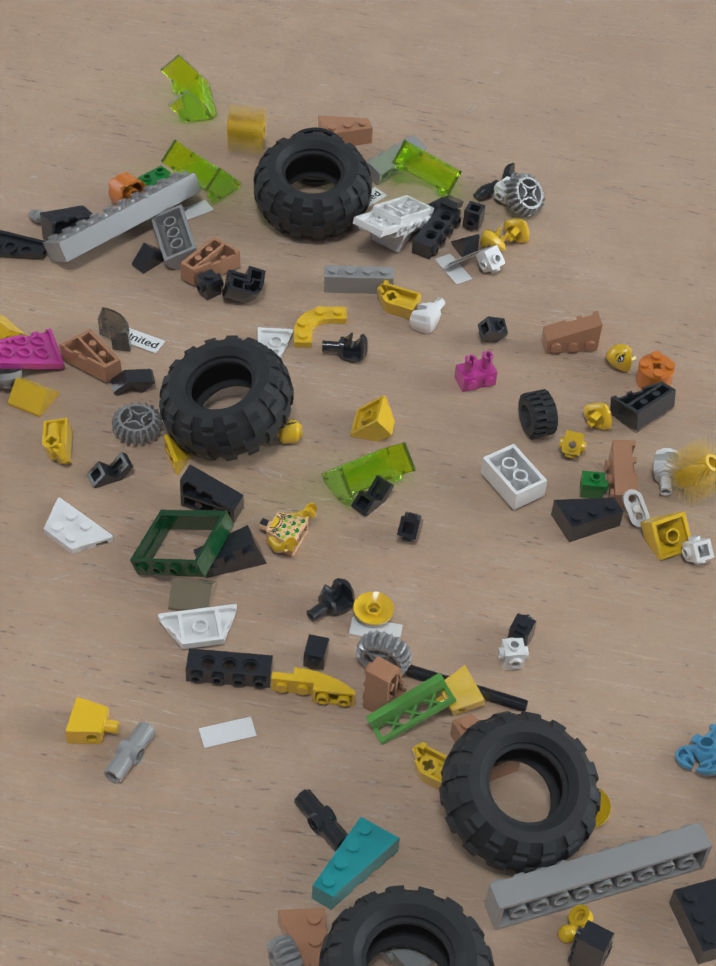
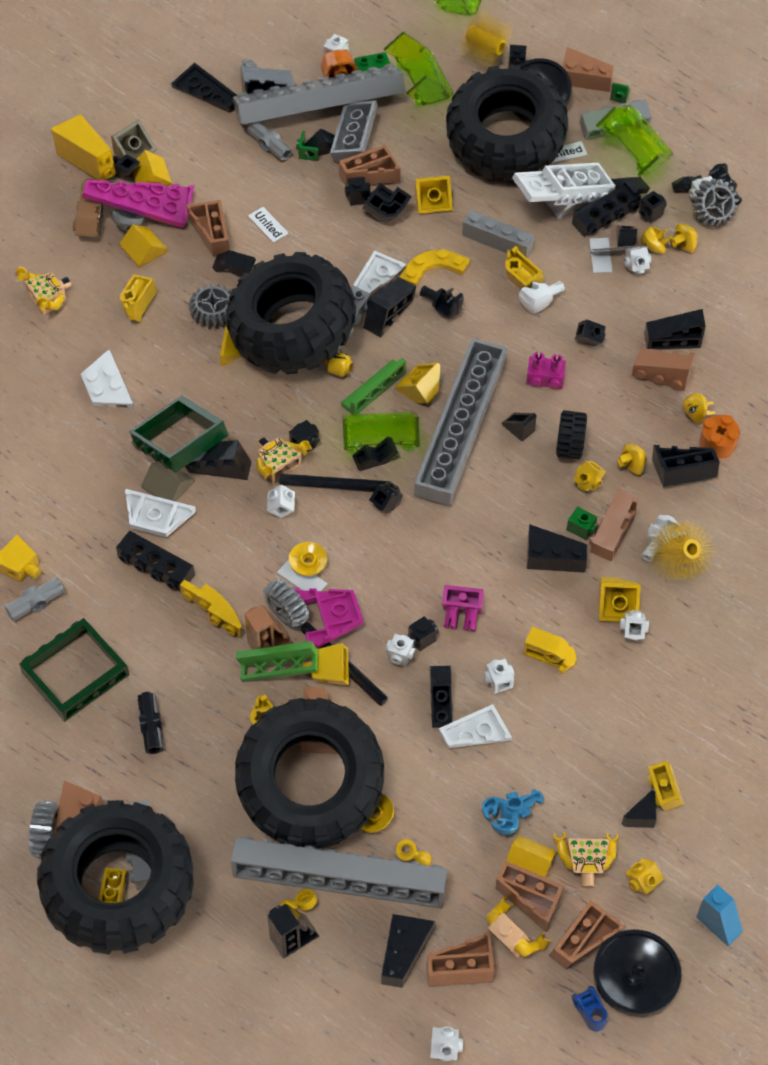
camera: 30 degrees right, 10 degrees up
(98, 269) = (269, 140): none -> light grey piece
(105, 474) = (161, 343): black slope -> none
(110, 171) = (336, 43): none -> white brick
(115, 328) = (246, 207): clear smoke brick -> none
(134, 266) = (300, 146): none -> green bracket
(197, 209) = (394, 108): white sticker -> none
(200, 836) = (90, 692): none -> dark green window
(204, 492) = (231, 398): black wedge -> none
(227, 732) = (124, 615): white sticker -> none
(276, 133) = (517, 54): none -> black brick
(279, 265) = (433, 194): none -> yellow slope
(297, 500) = (305, 431): none -> black brick
(301, 367) = (387, 304): none -> black wedge
(315, 567) = (281, 501): none -> white brick
(316, 652) = (234, 577): black brick -> none
(332, 440) = (374, 386): none -> bright green fence
(333, 600) = (277, 537): black piece -> none
(349, 535) = (329, 482): none -> black axle
(356, 858) = (150, 769): teal wedge -> none
(383, 138) = (619, 92): none -> green bracket
(433, 441) = (460, 422): none -> light grey brick
(433, 644) = (338, 613): none -> dark pink wing
(483, 423) = (521, 424): none -> black slope
(513, 476) = (511, 486): white brick -> none
(539, 587) = (465, 600): none -> dark pink brick
(564, 303) = (676, 331): none -> black wedge
(574, 677) = (440, 695): none -> black slope
(614, 638) = (499, 675): none -> white brick
(625, 694) = (476, 729): none -> white wing
(635, 507) = (603, 561): white plate -> none
(639, 599) = (549, 649): none -> yellow piece
(644, 828) = (422, 857): none -> yellow plate

